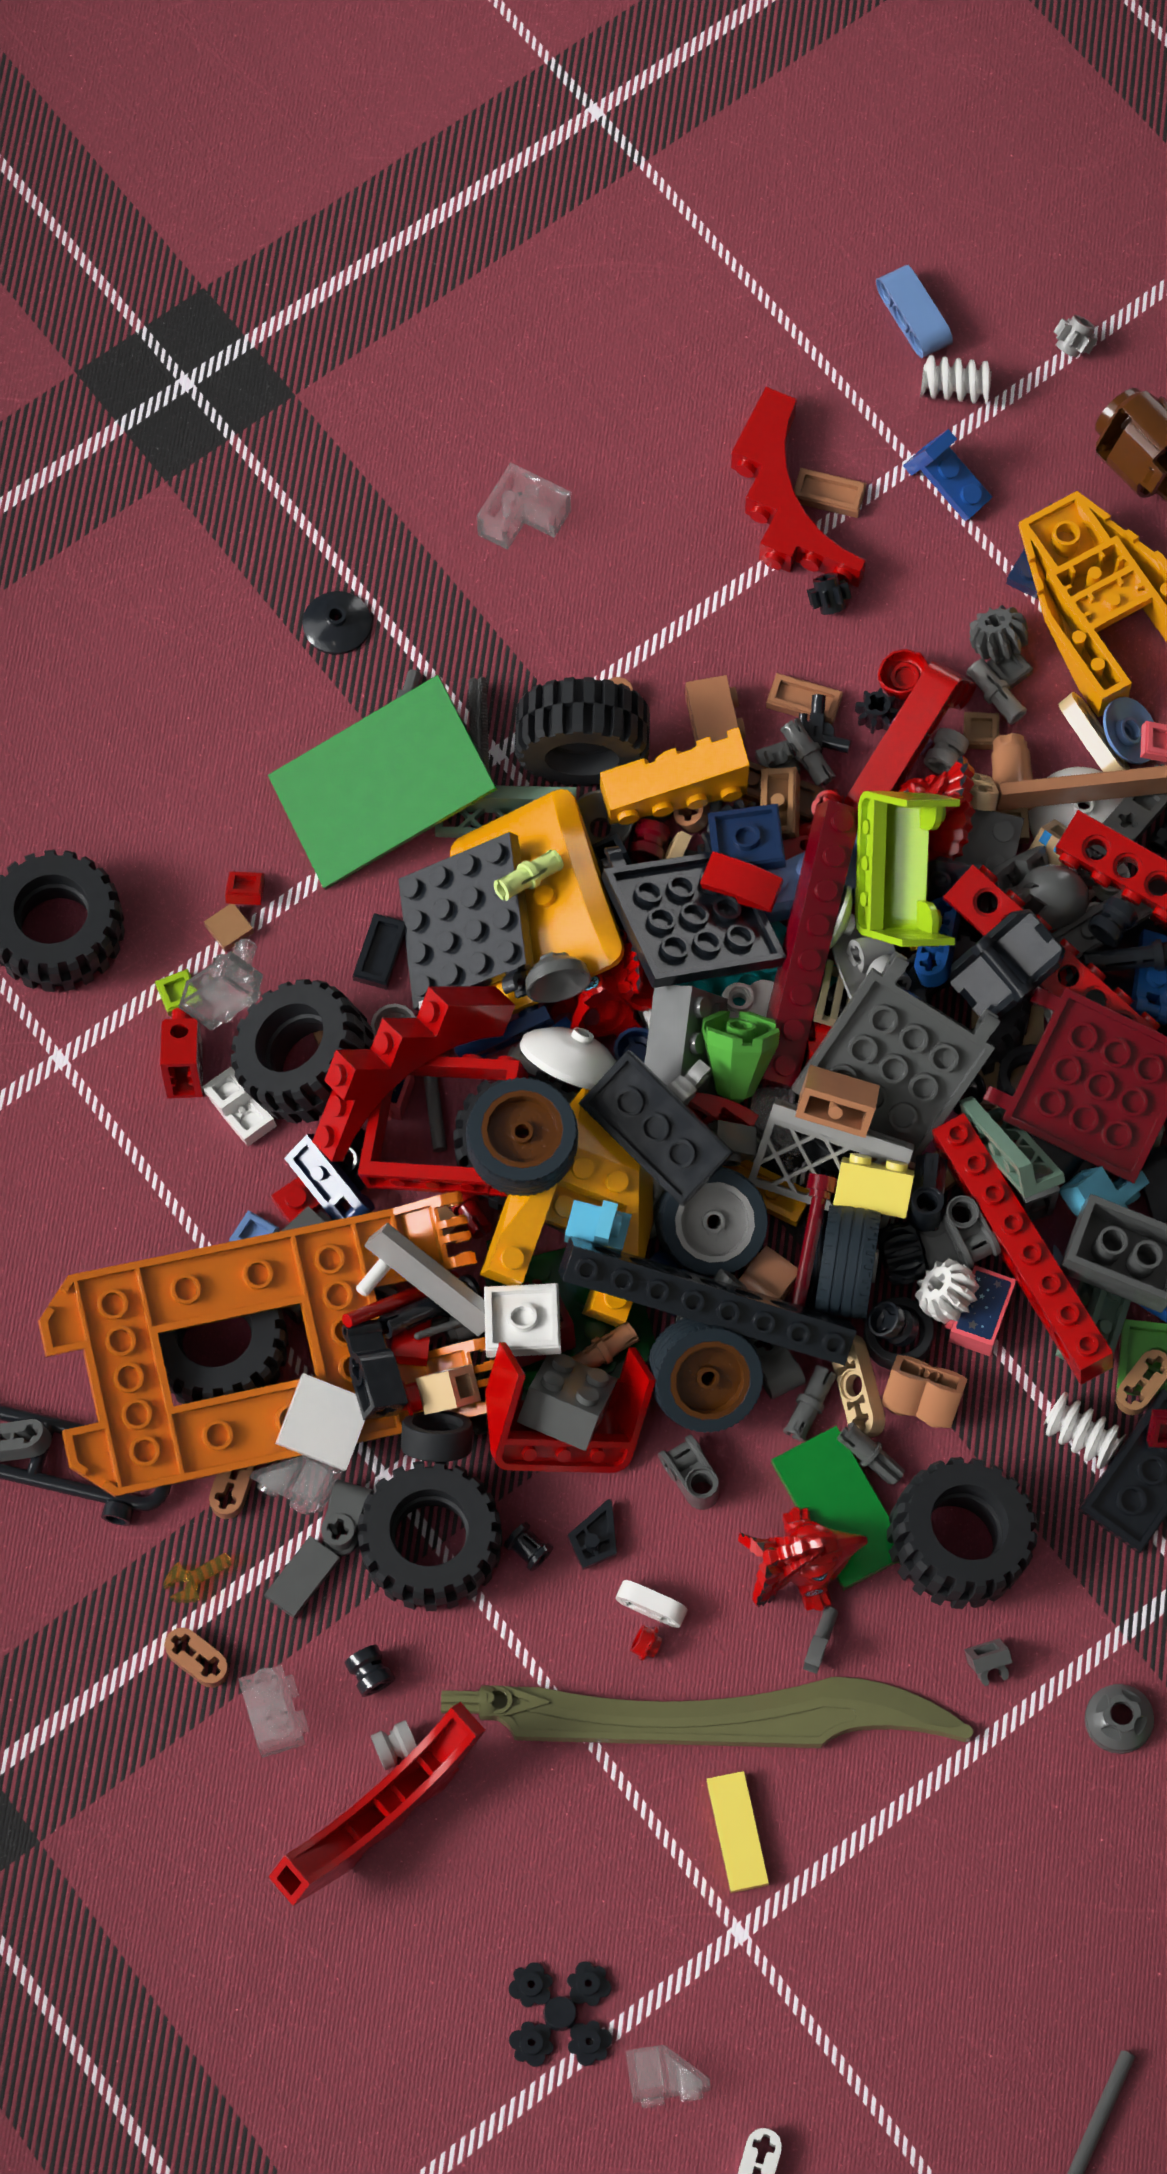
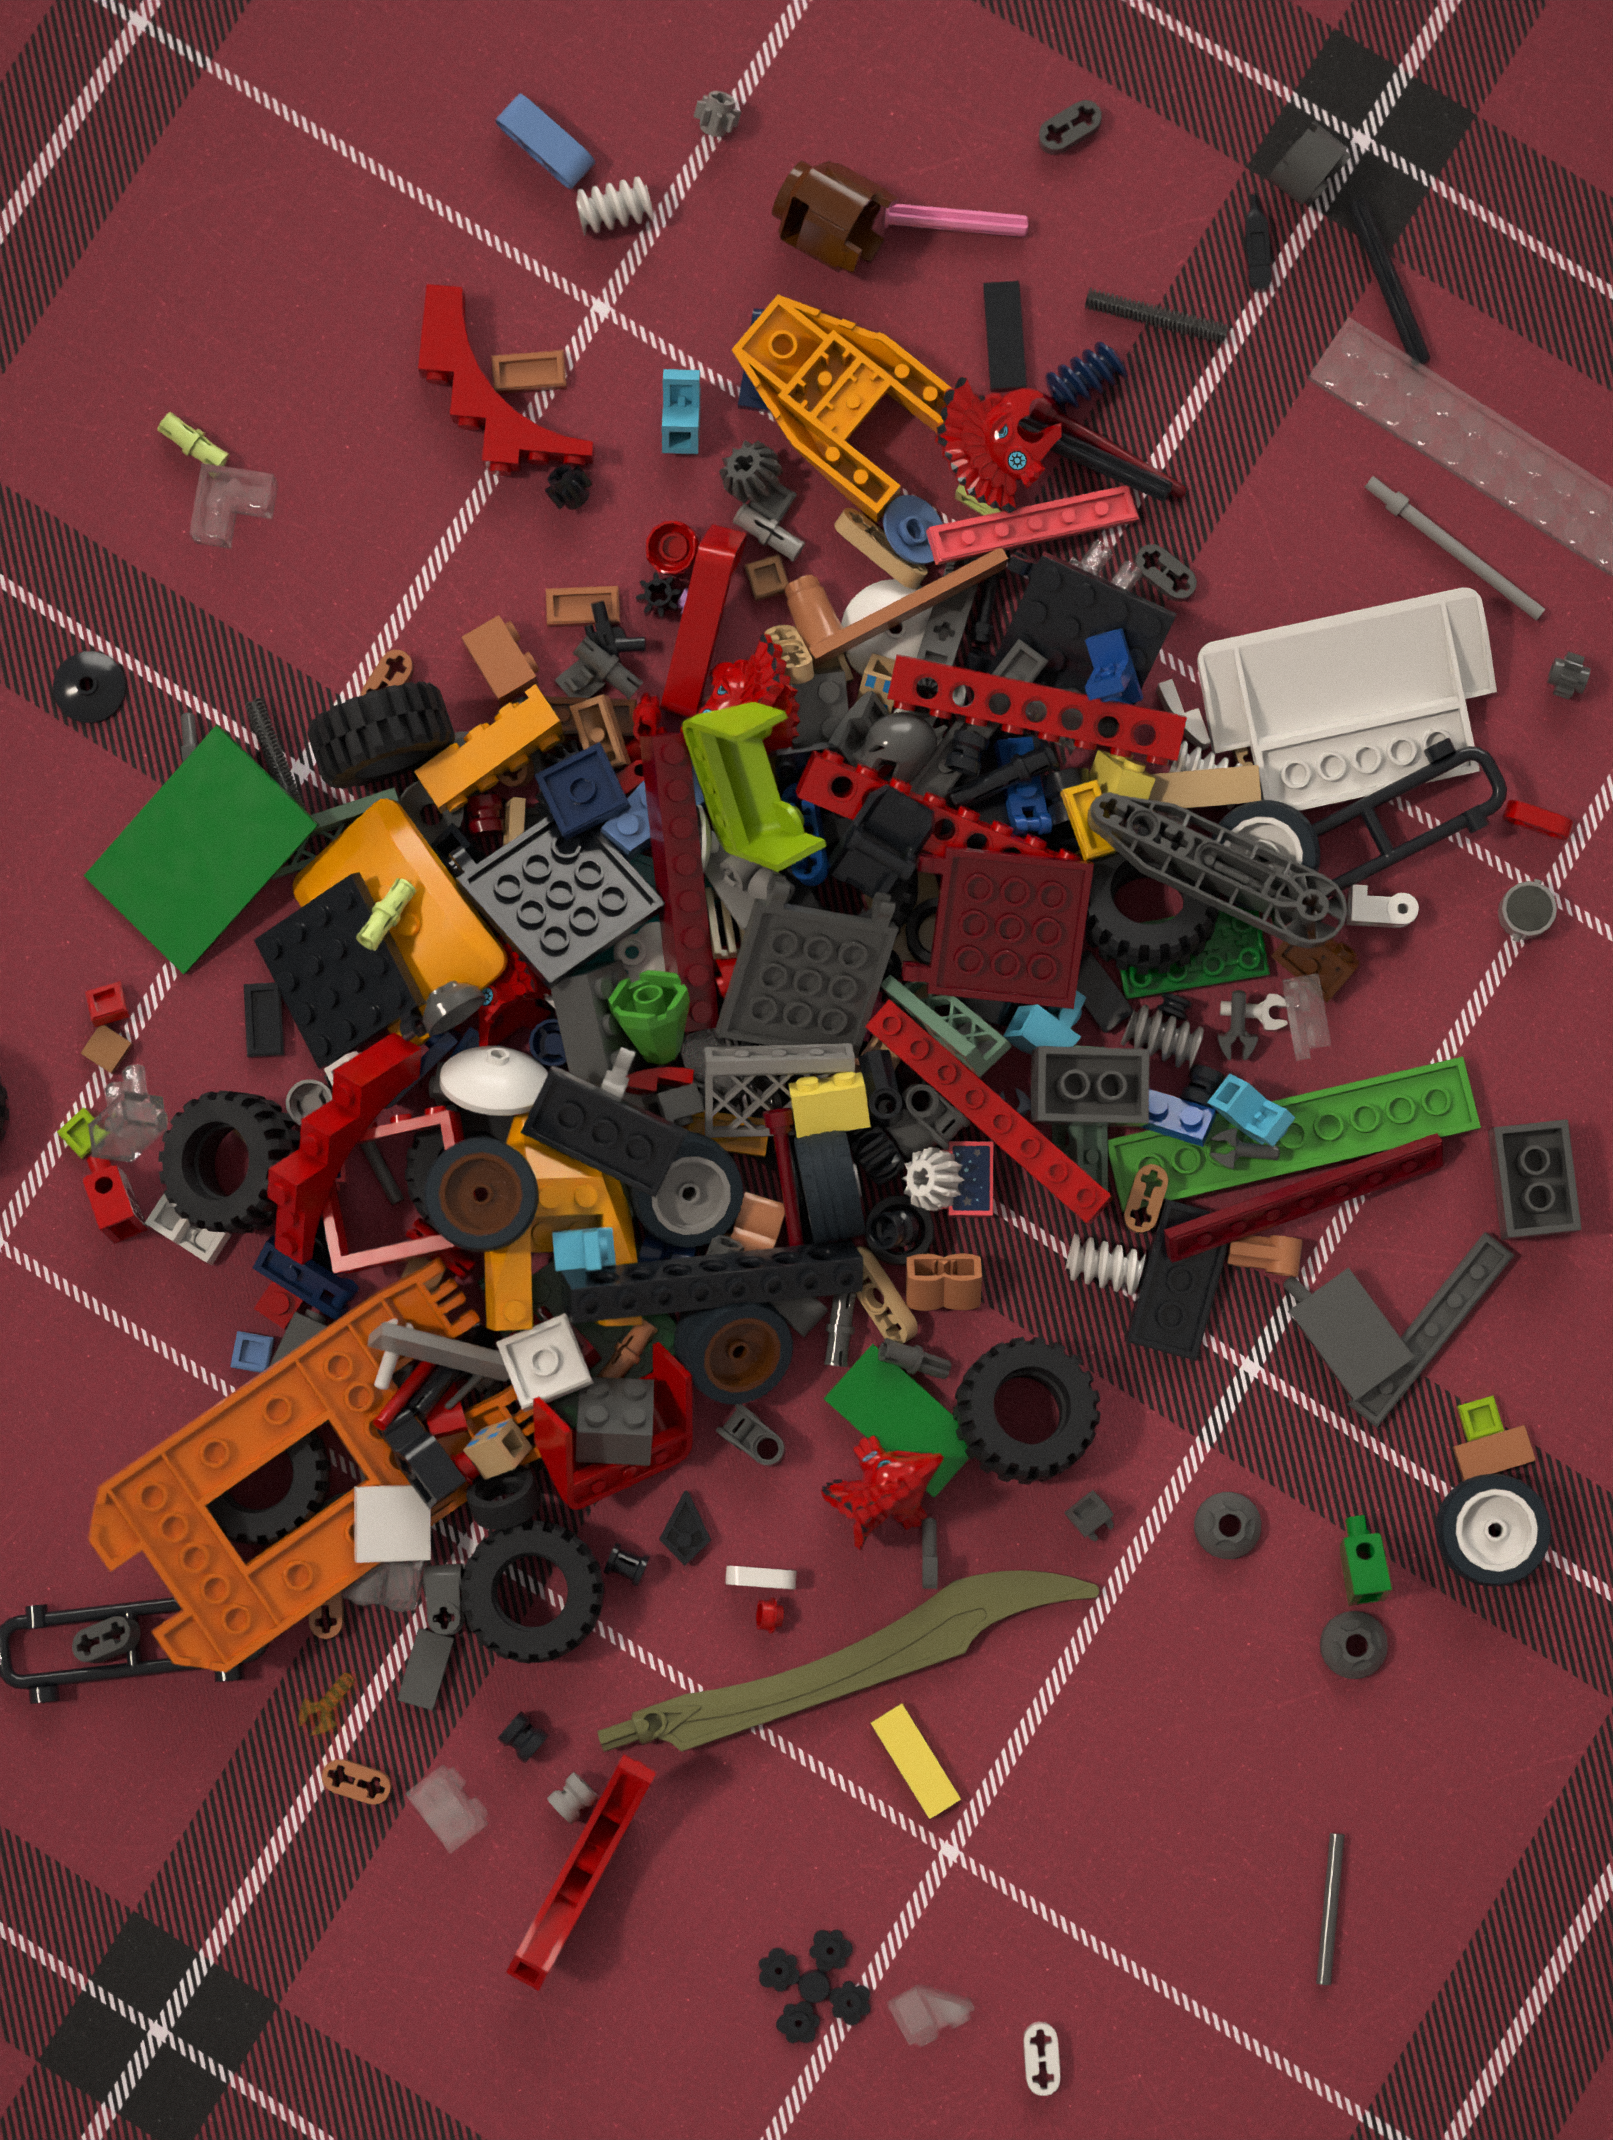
camera: 20 degrees left, 15 degrees up
(505, 446) = (192, 441): none -> yellowish green pin
(741, 880) = (594, 841): red slope -> none
(837, 1101) = (766, 1038): nougat brick -> none
(947, 749) = (742, 615): light grey wheel -> none
(949, 475) = (643, 314): blue bracket -> none
(955, 562) = (681, 411): none -> medium azure brick

